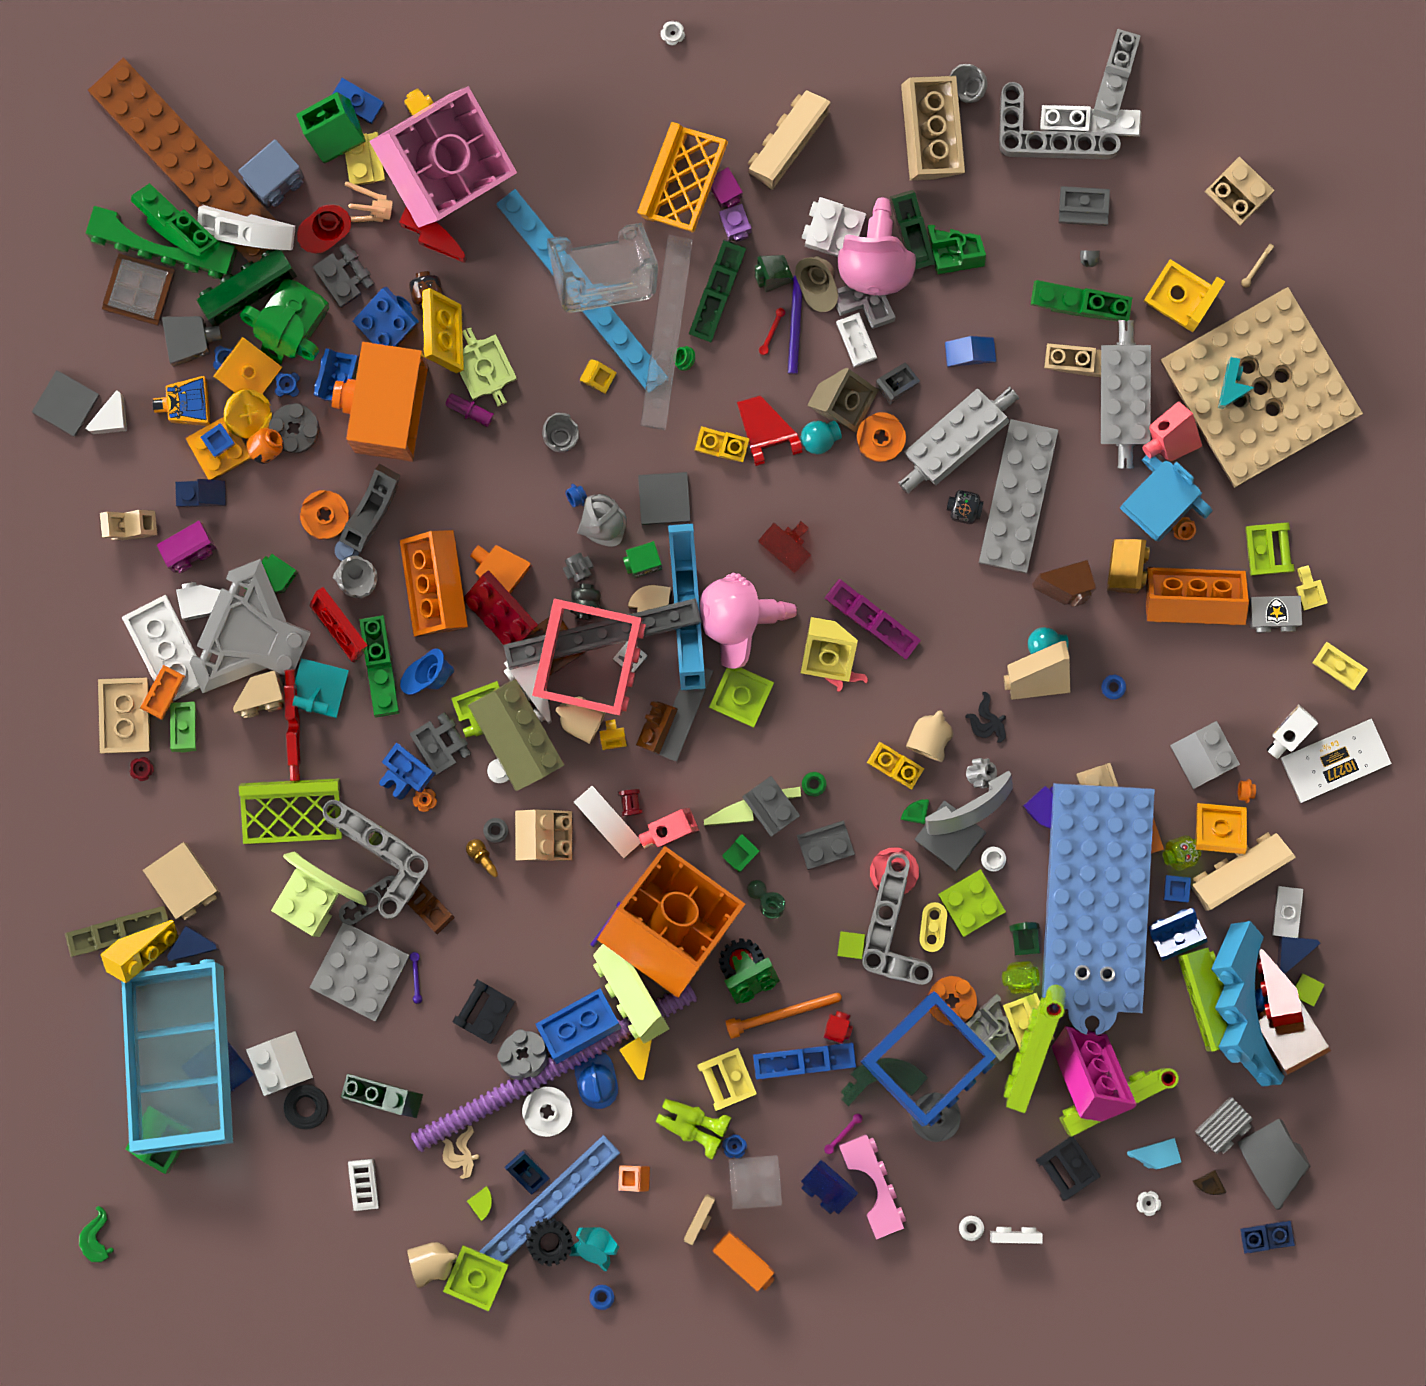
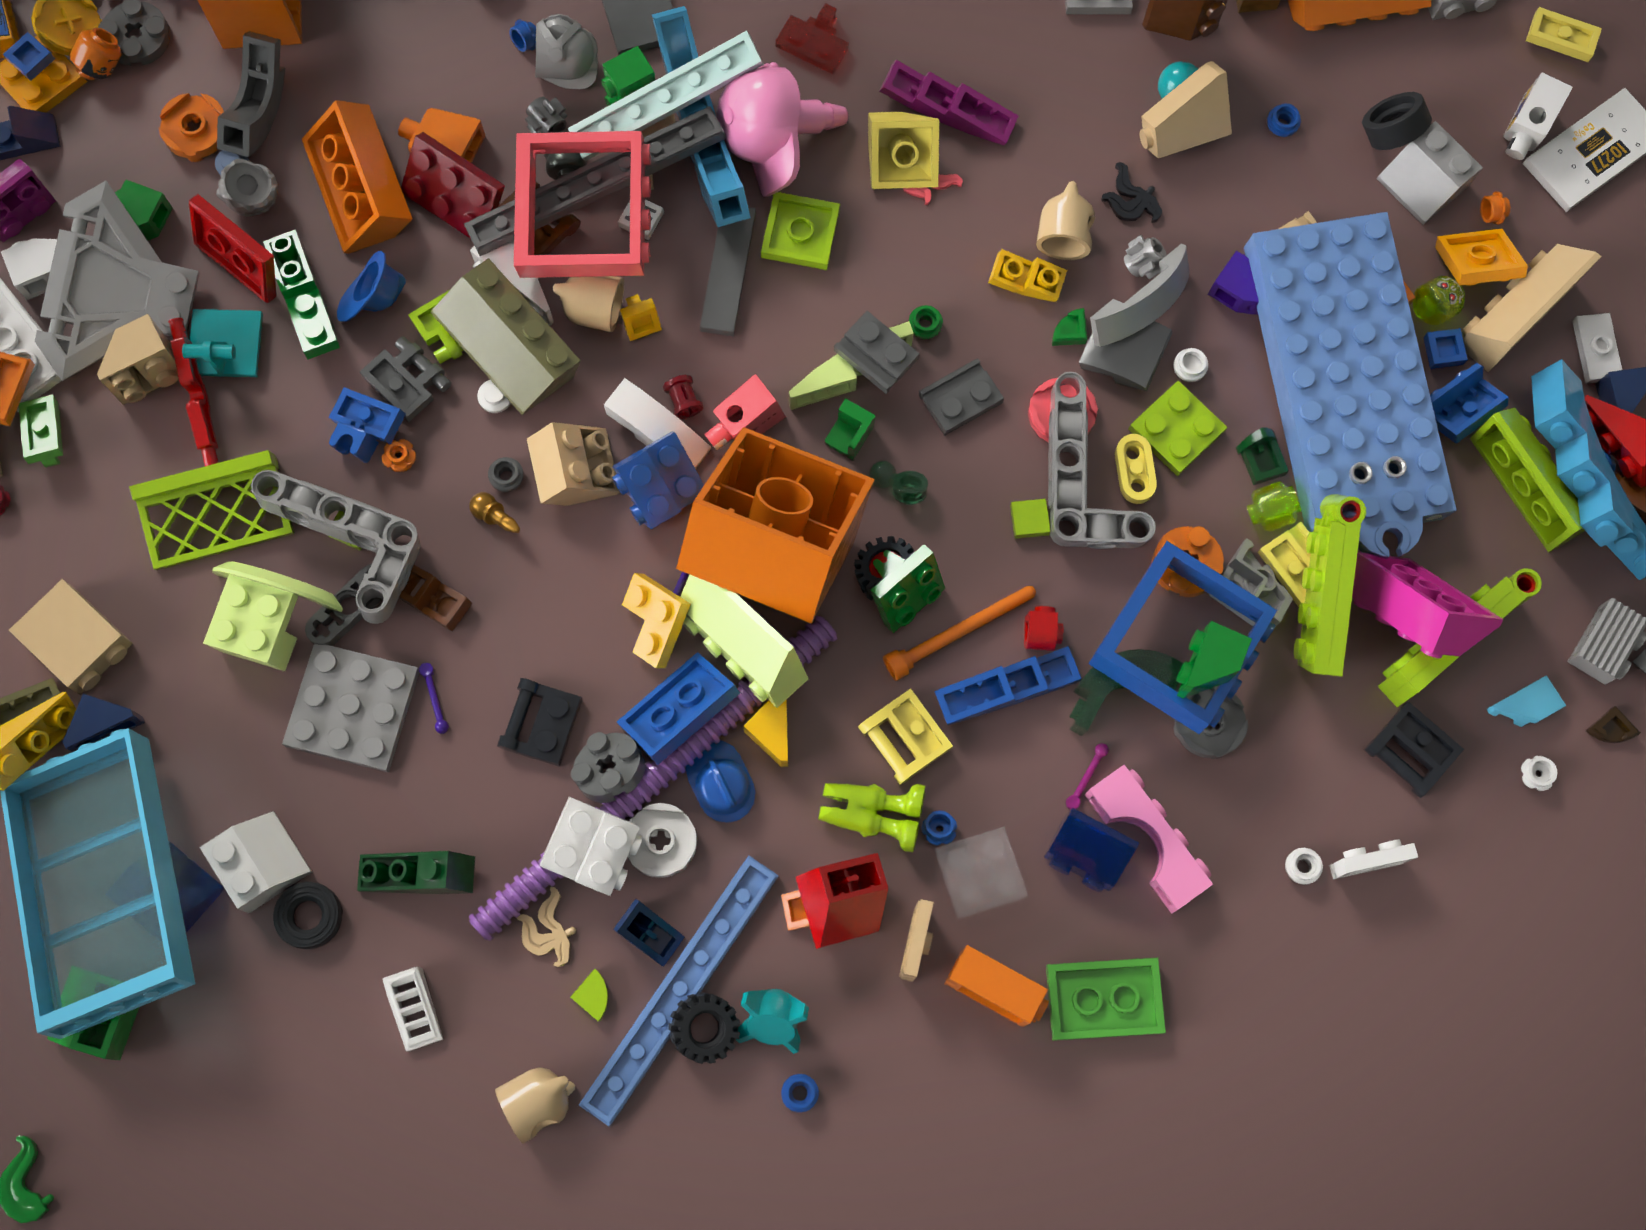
camera: 20 degrees left, 10 degrees down
(476, 1278) = (606, 1107): lime plate -> none
(501, 1108) = (591, 847): none -> white plate
(582, 959) = (663, 617): none -> yellow plate
(599, 862) = (658, 480): none -> blue plate
(656, 727) = (696, 292): reddish brown plate -> none
(658, 1180) = (844, 899): none -> red slope
(666, 584) = (675, 89): none -> light aqua plate
(815, 1284) = (1105, 999): none -> bright green plate
(940, 1084) = (1214, 661): none -> green slope
(1194, 723) = (1397, 120): none -> black tyre

